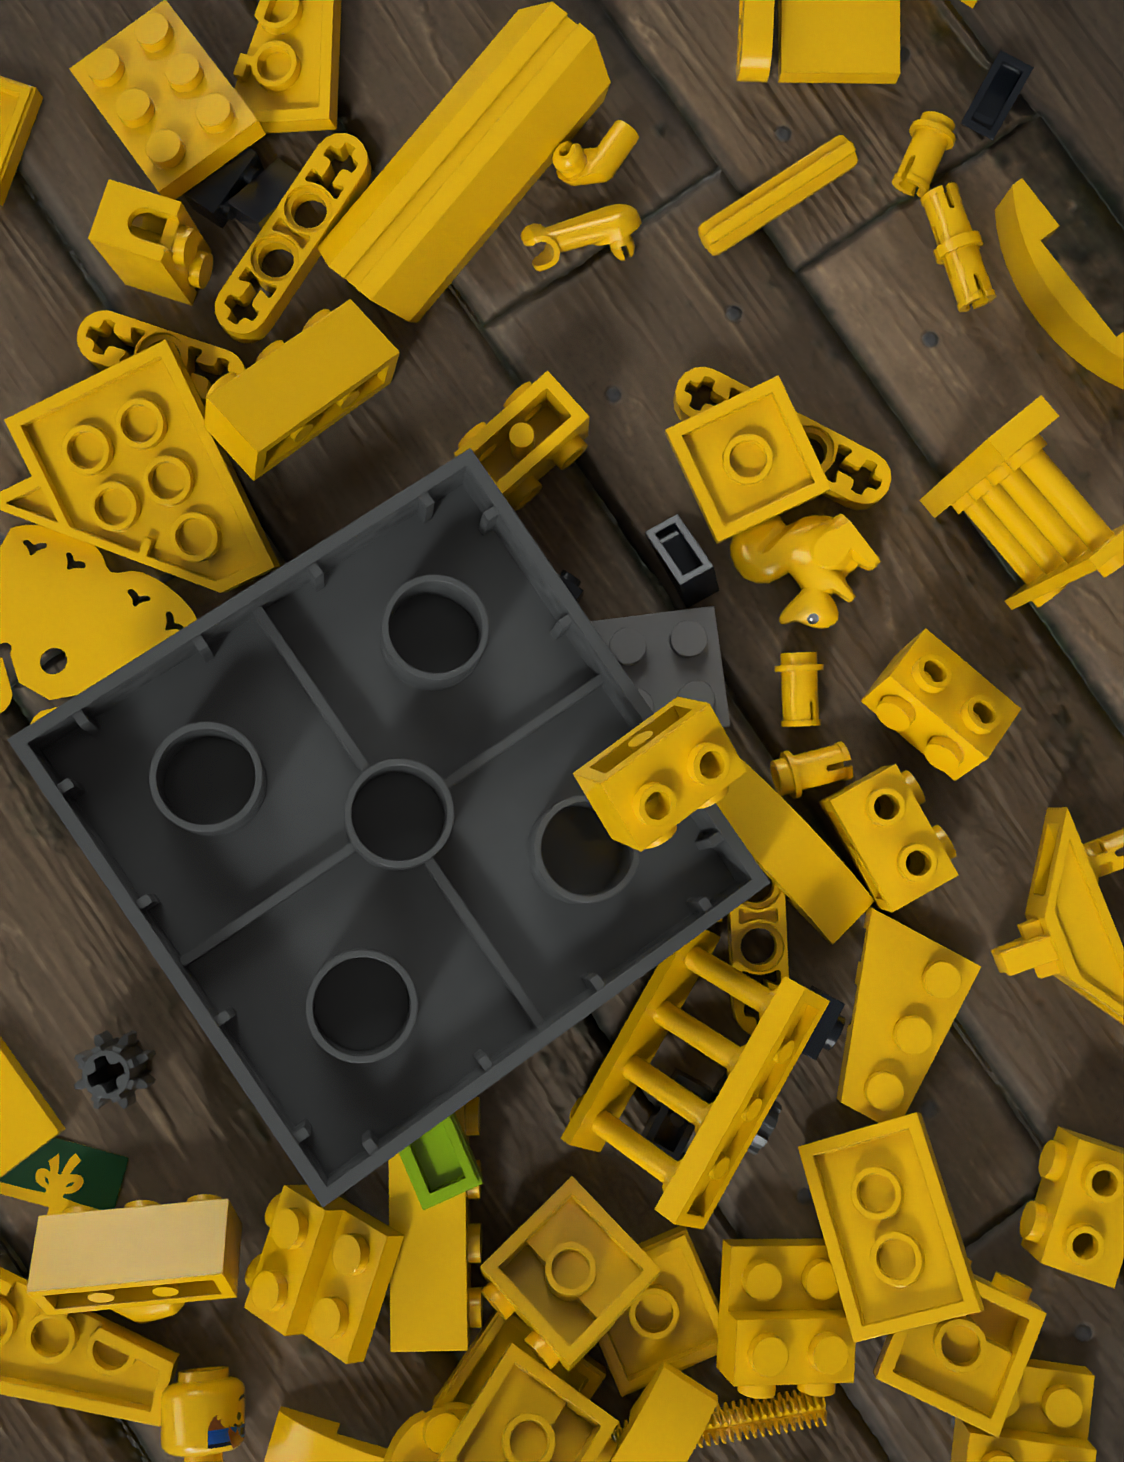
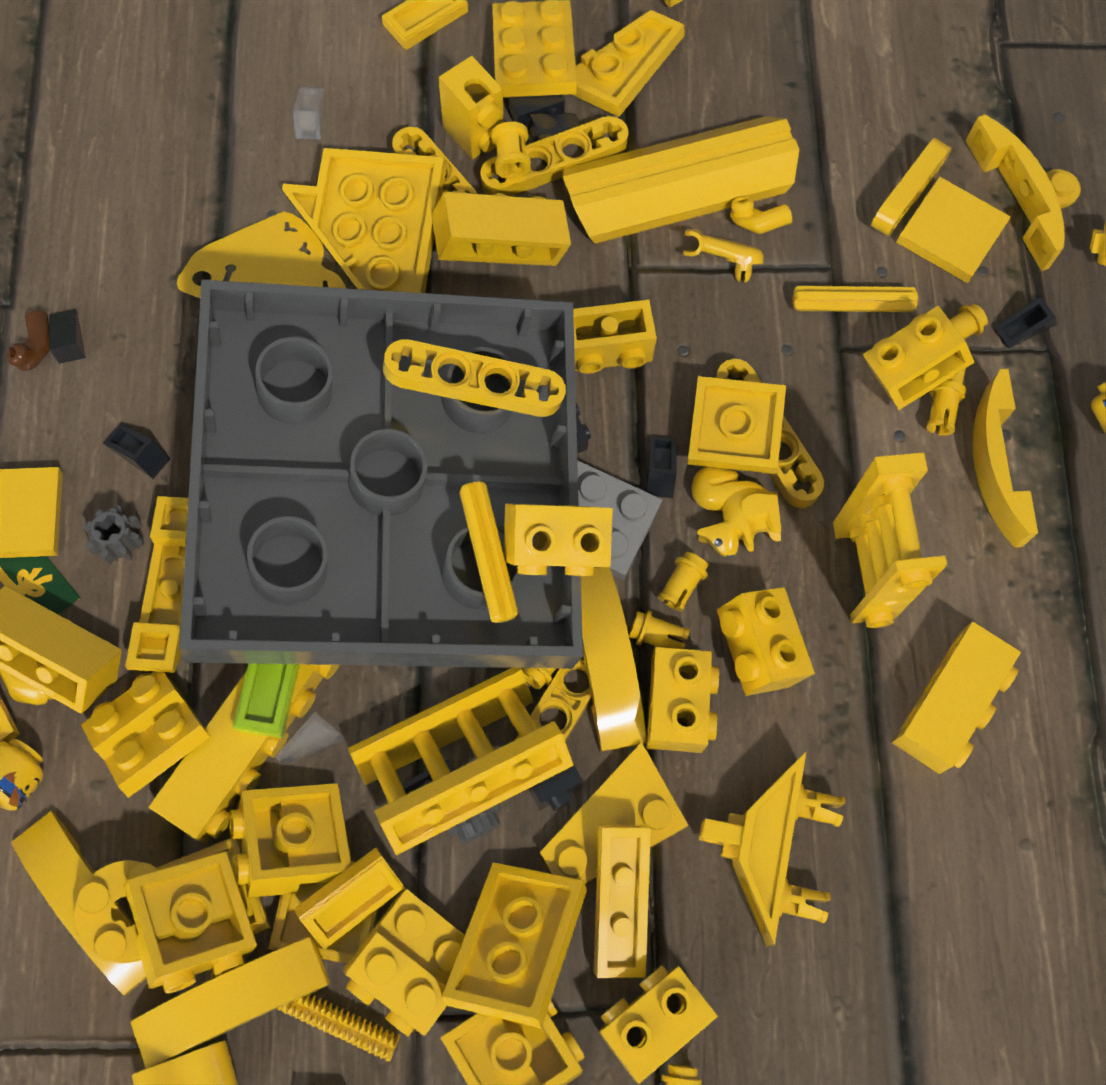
camera: 30 degrees right, 15 degrees down
(61, 947) = (137, 450): none -> black piece
(239, 270) = (511, 150): none -> yellow bush
(253, 1156) = (156, 637): none -> yellow slope
(421, 626) = (475, 370): none -> yellow beam
(508, 1139) = (310, 738): none -> clear piece
(589, 840) = (488, 552): none -> yellow axle
(678, 1298) = (349, 898): none -> yellow tile
(908, 230) = (919, 357): none -> yellow brick
(966, 1100) = (621, 901): none -> yellow plate

